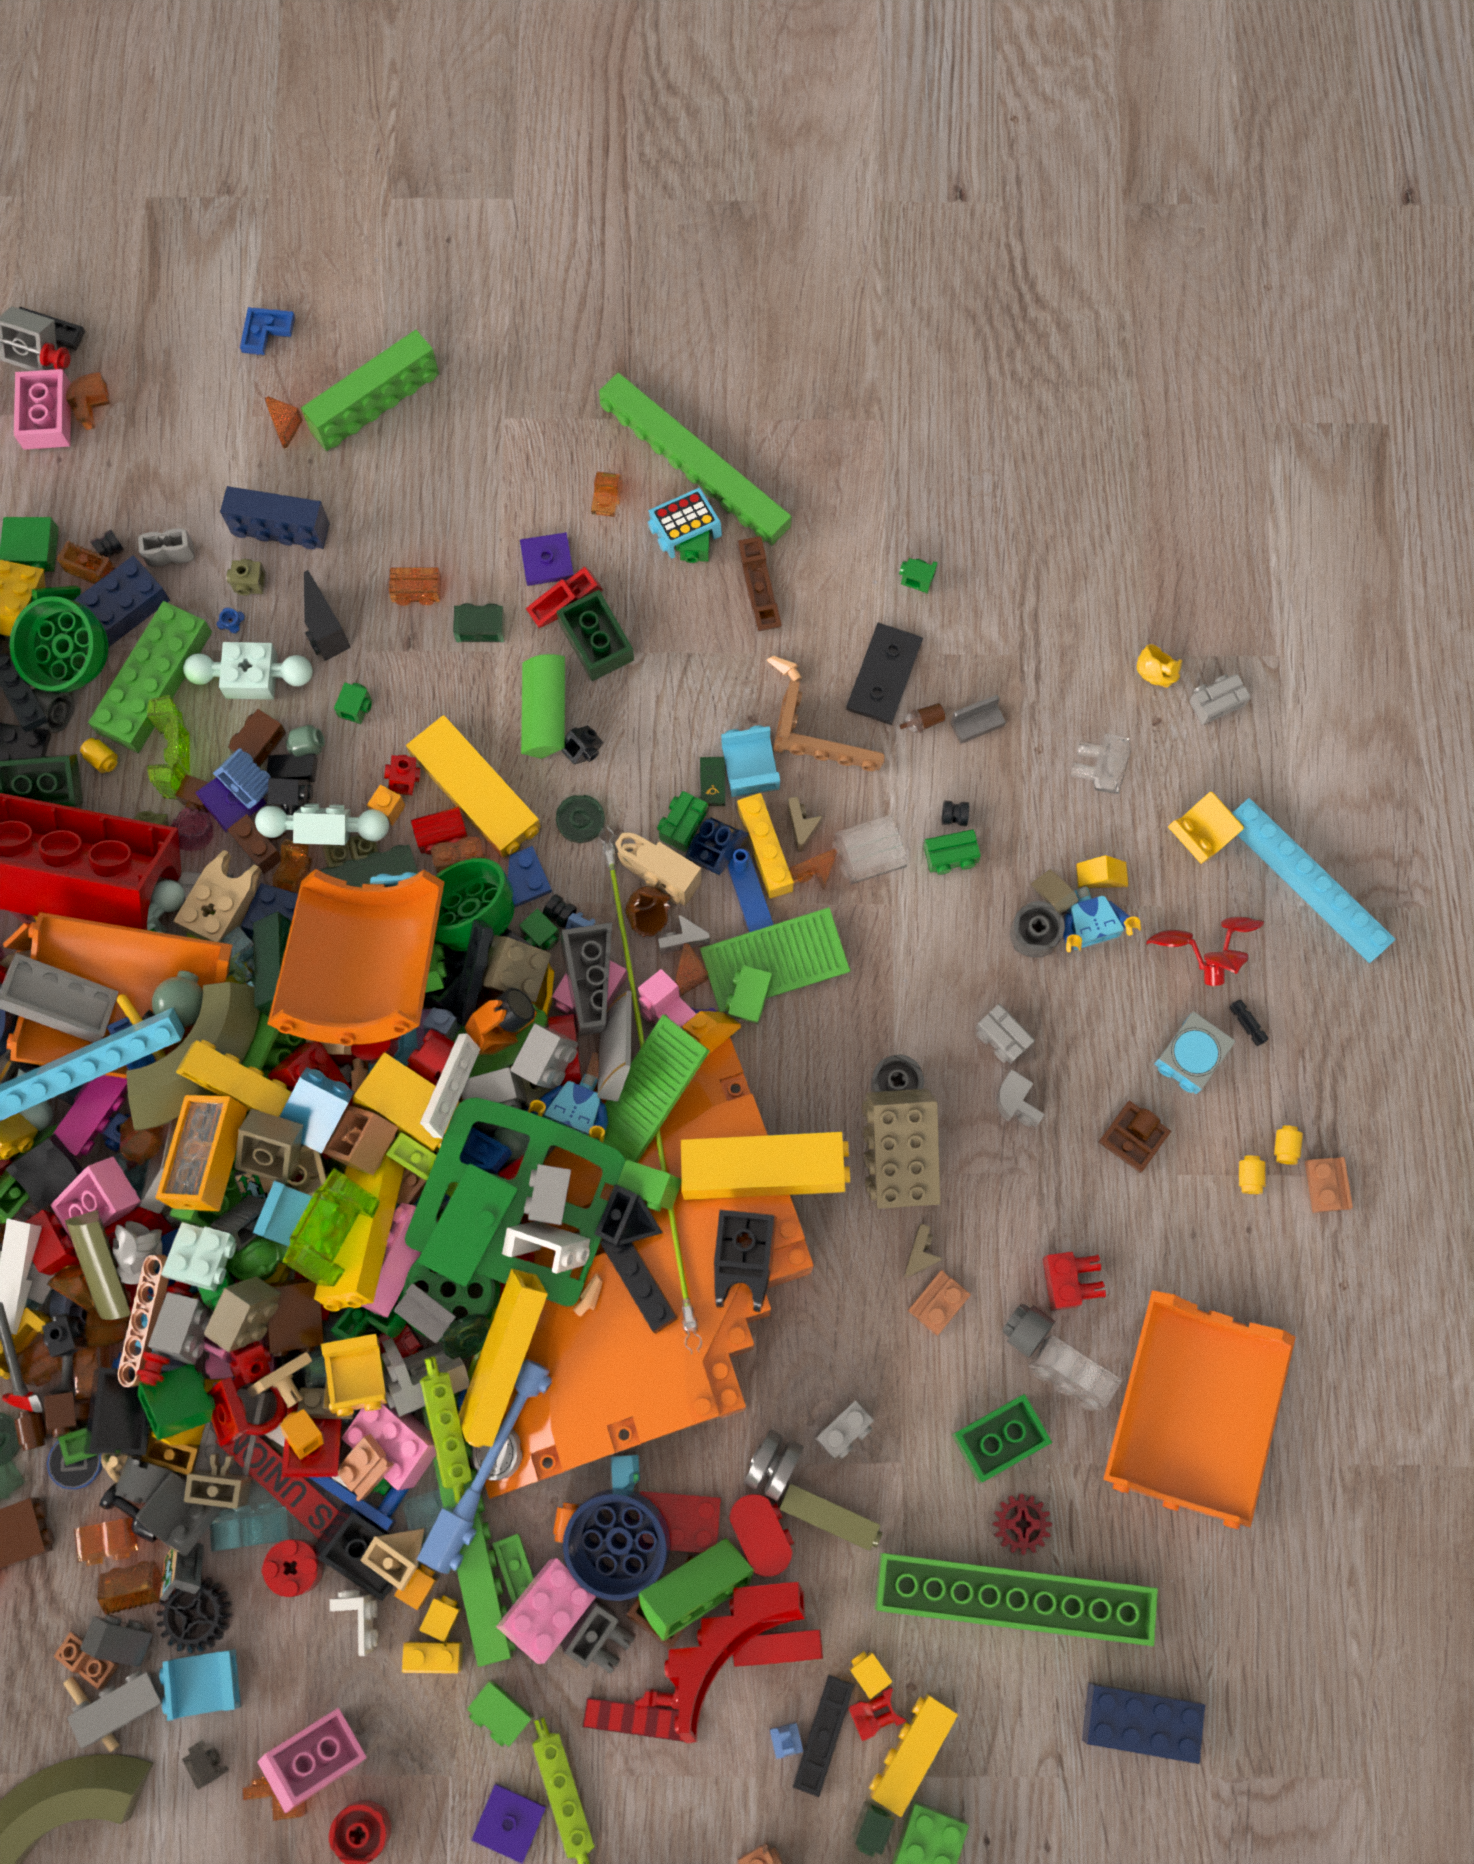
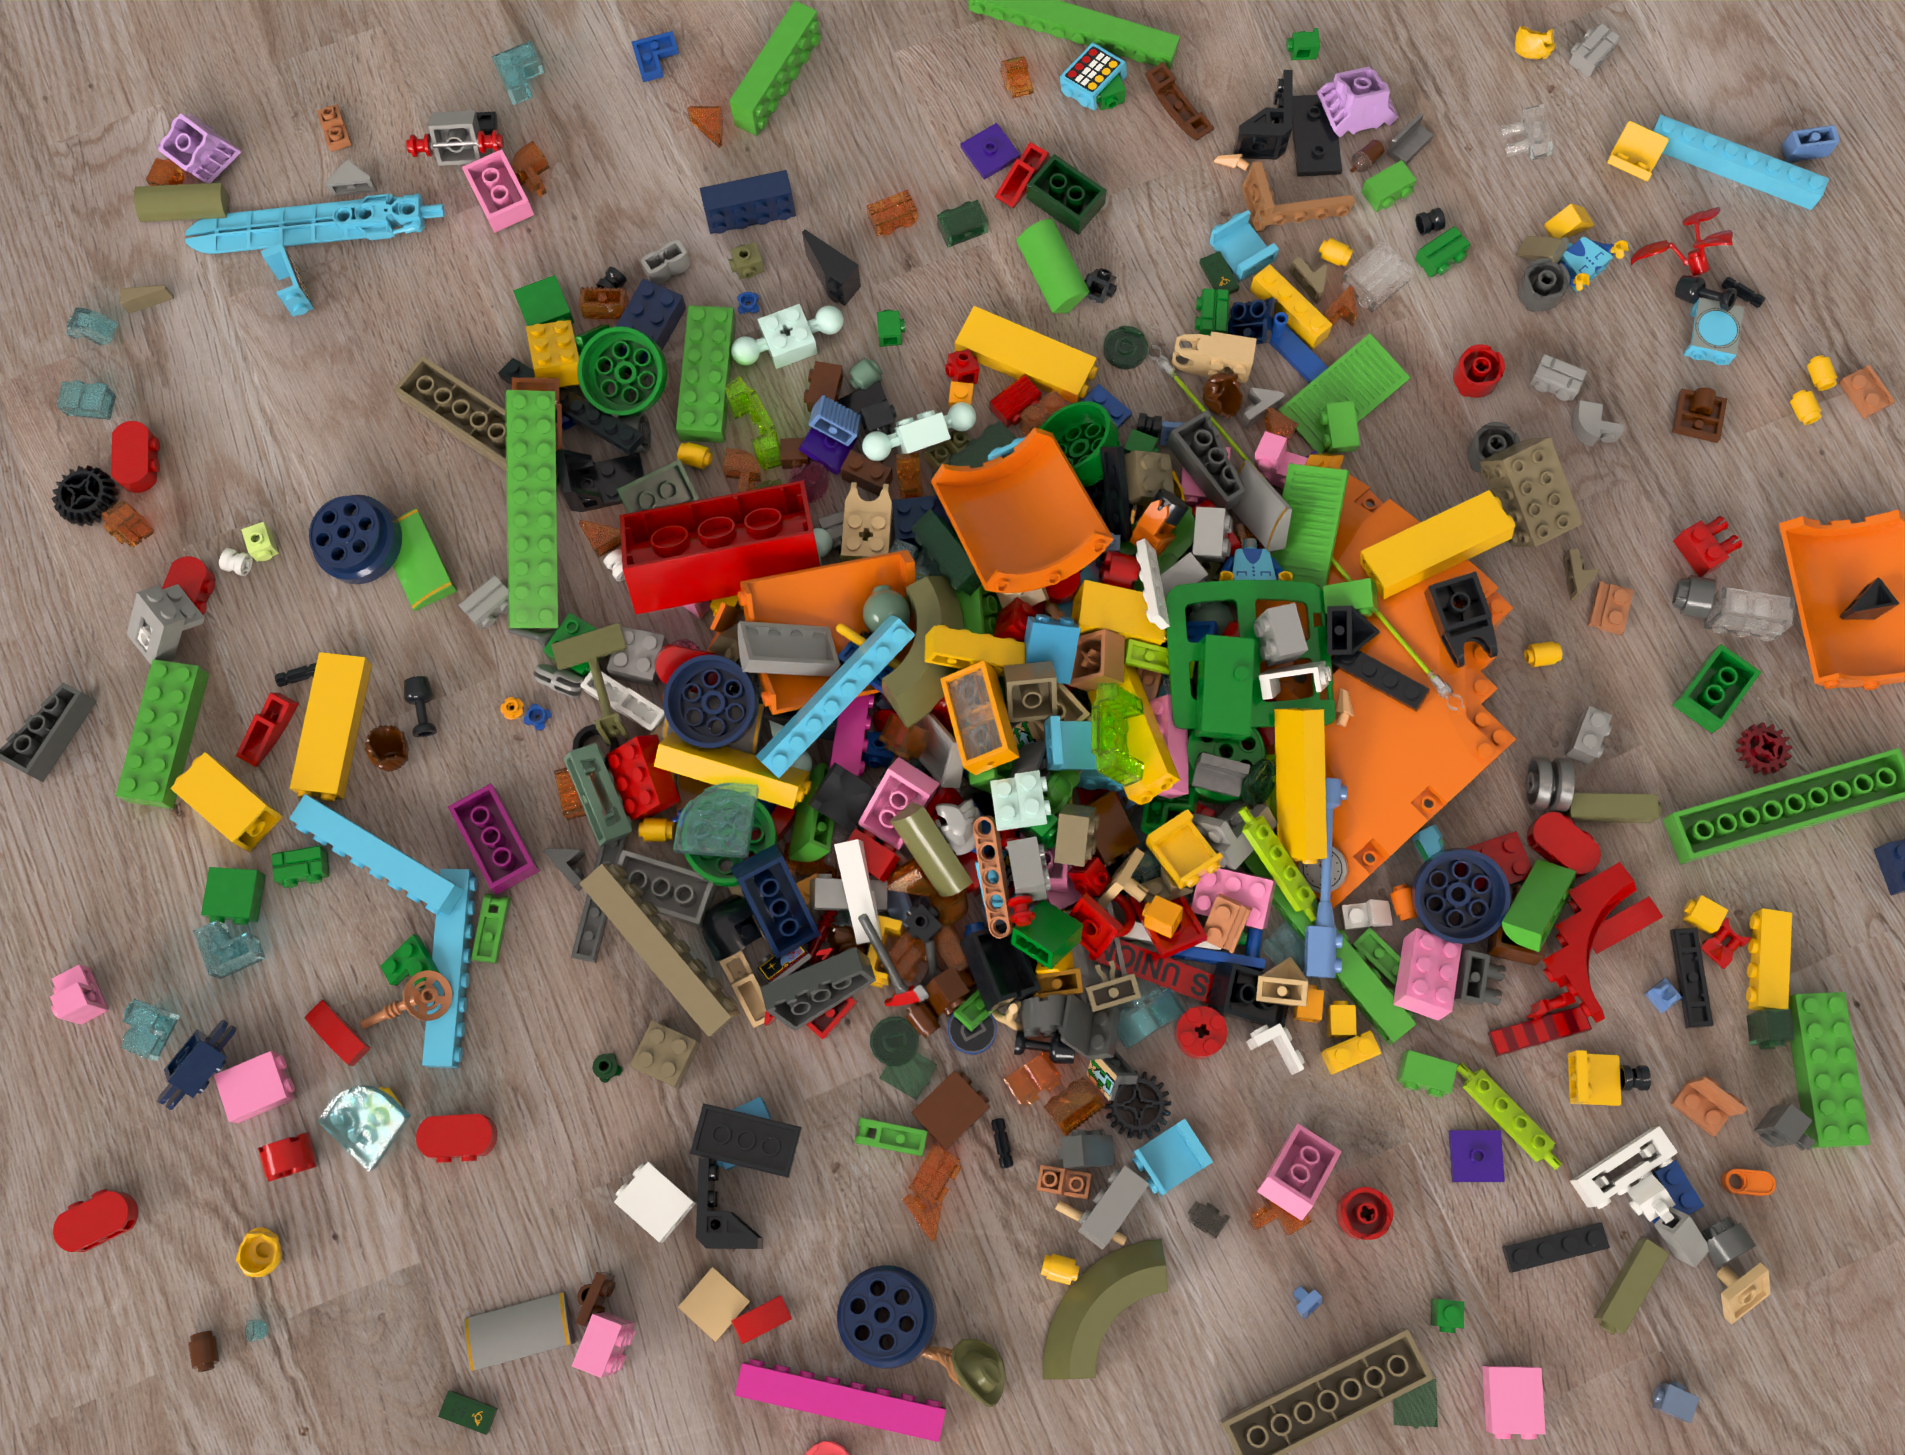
camera: 20 degrees left, 0 degrees up
(34, 1748) = (1060, 1268): none -> yellow brick
(45, 1592) = (1002, 1143): none -> black axle
(122, 290) = (515, 68): none -> clear light blue brick
(139, 789) = (742, 466): none -> clear orange brick
(525, 1519) = (1365, 915): none -> white slope
(669, 1798) = (1594, 1079): none -> yellow bracket
(715, 1817) = (1635, 1078): none -> black wheel
(822, 657) = (1258, 135): none -> black bracket
(841, 806) = (1335, 252): none -> yellow brick
(841, 1322) = (1543, 654): none -> yellow brick
(931, 759) = (1389, 186): none -> bright green brick
(936, 998) = (1478, 371): none -> red brick
(941, 656) = (1357, 101): none -> lavender slope
(1195, 998) = (1692, 287): none -> black piece
(1210, 1416) = (1871, 602): none -> black slope
(1398, 892) = (1810, 143): none -> medium blue brick

